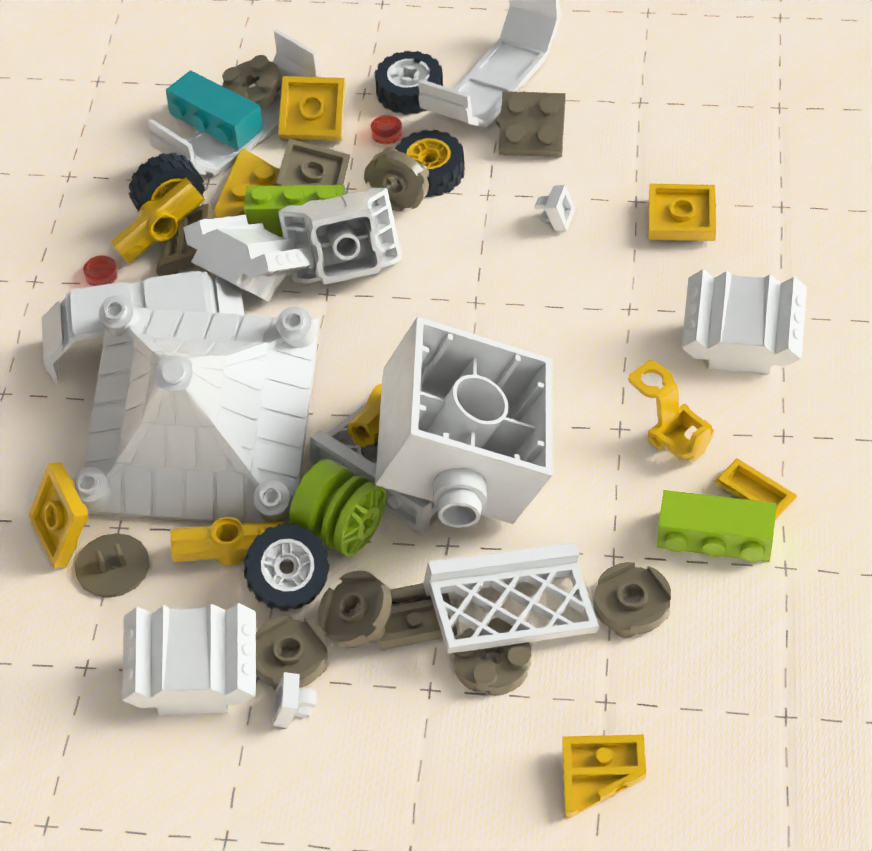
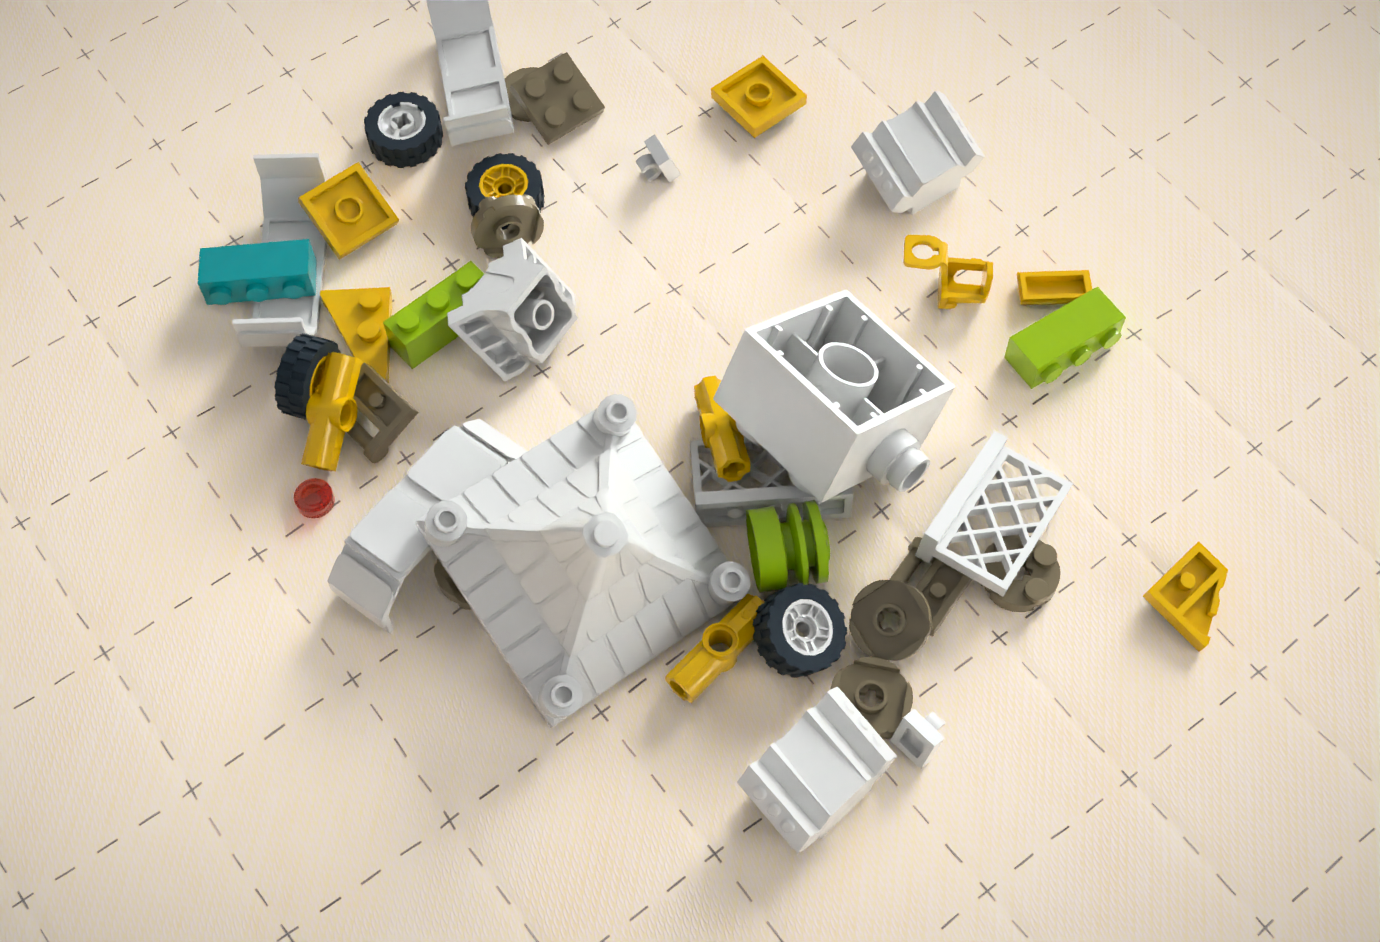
camera: 45 degrees left, 10 degrees up
(58, 515) = (558, 744): yellow plate -> none
(112, 565) = (634, 749): dark tan piece -> none
(245, 253) = (458, 383): white slope -> none
(256, 71) = (258, 207): dark tan plate -> none
(312, 165) = (411, 266): dark tan plate -> none
(386, 129) = (428, 186): clear red tile -> none
(626, 617) = (1068, 462): dark tan plate -> none

